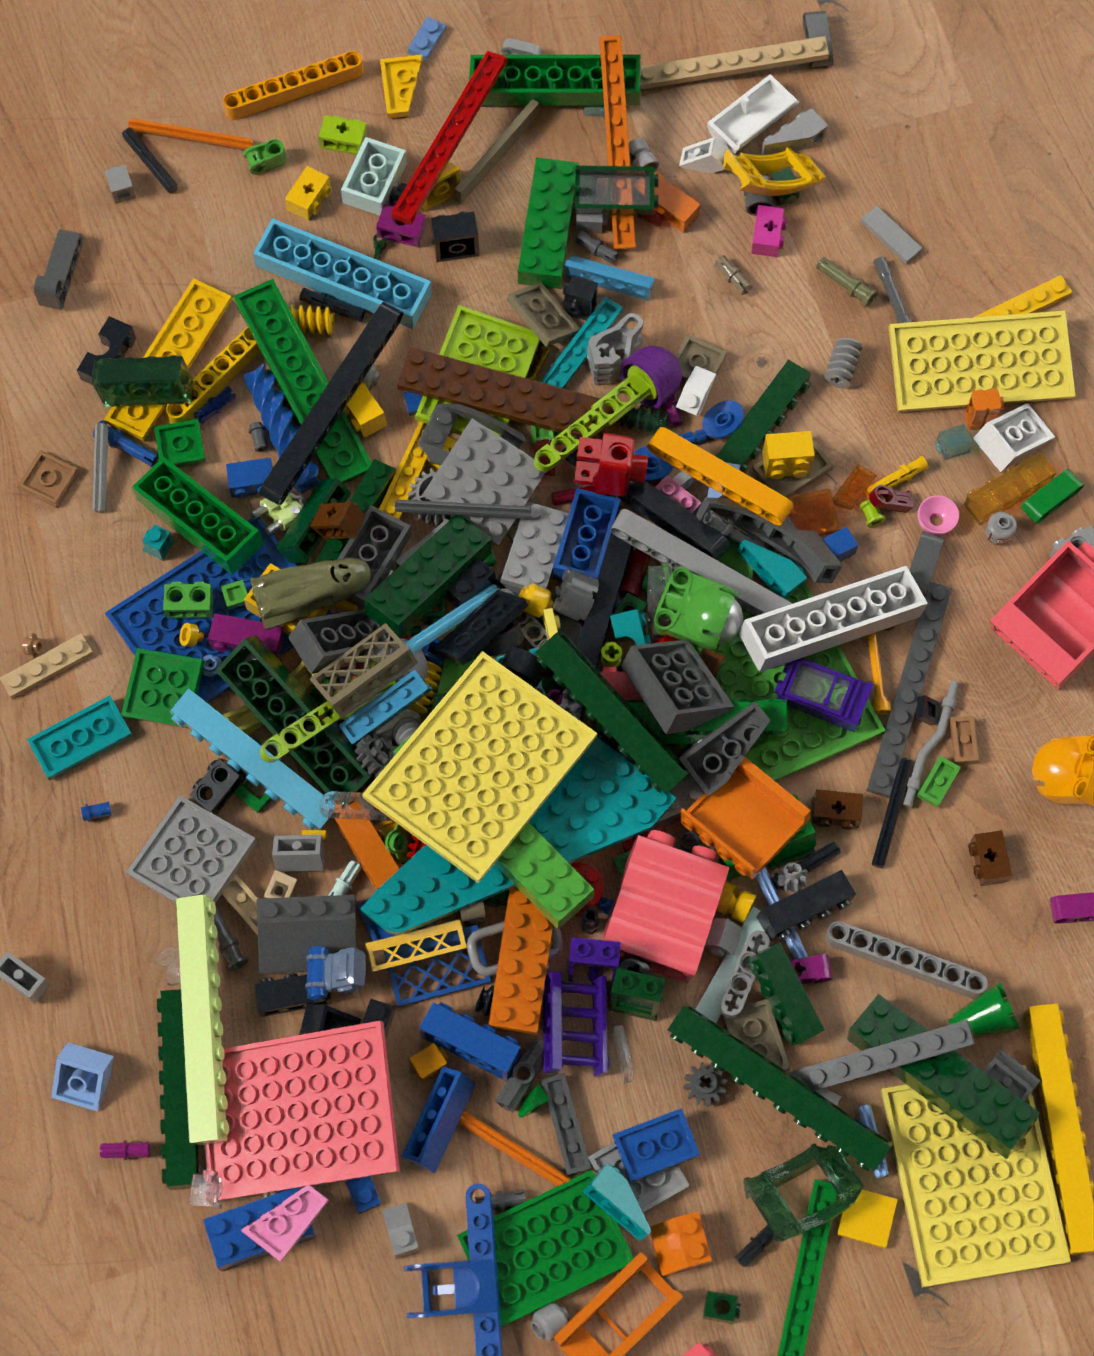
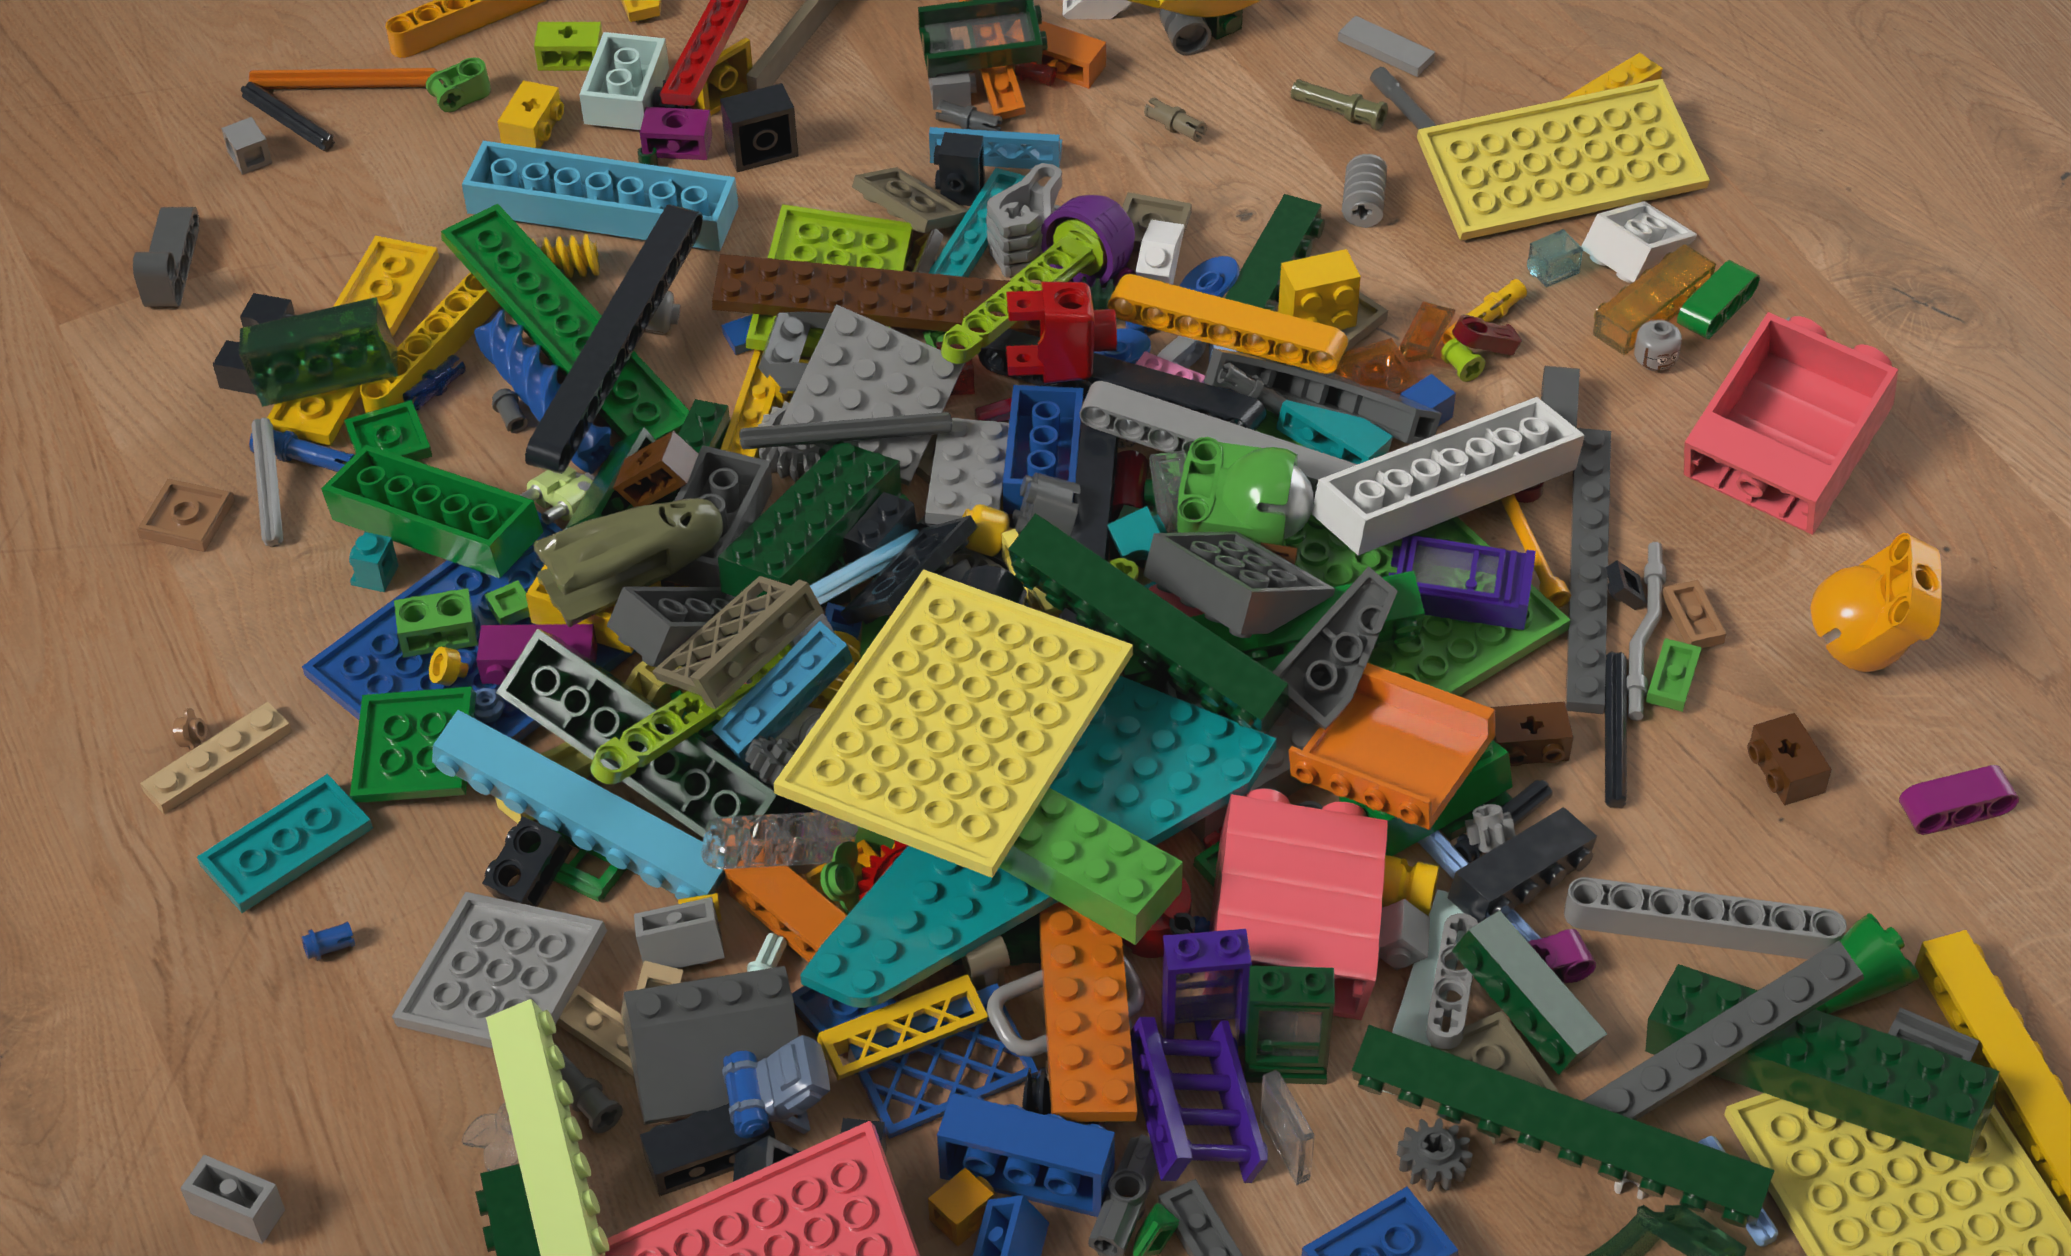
camera: 10 degrees left, 20 degrees down
(247, 476) = (501, 459): blue brick -> none
(325, 301) = (606, 239): black pin -> none
(365, 412) = (670, 351): yellow brick -> none
(547, 223) = (891, 97): green brick -> none
(767, 220) = (1211, 63): dark pink brick -> none
(941, 507) = (1561, 337): bright pink piece -> none
(983, 407) = (1582, 200): orange brick -> none

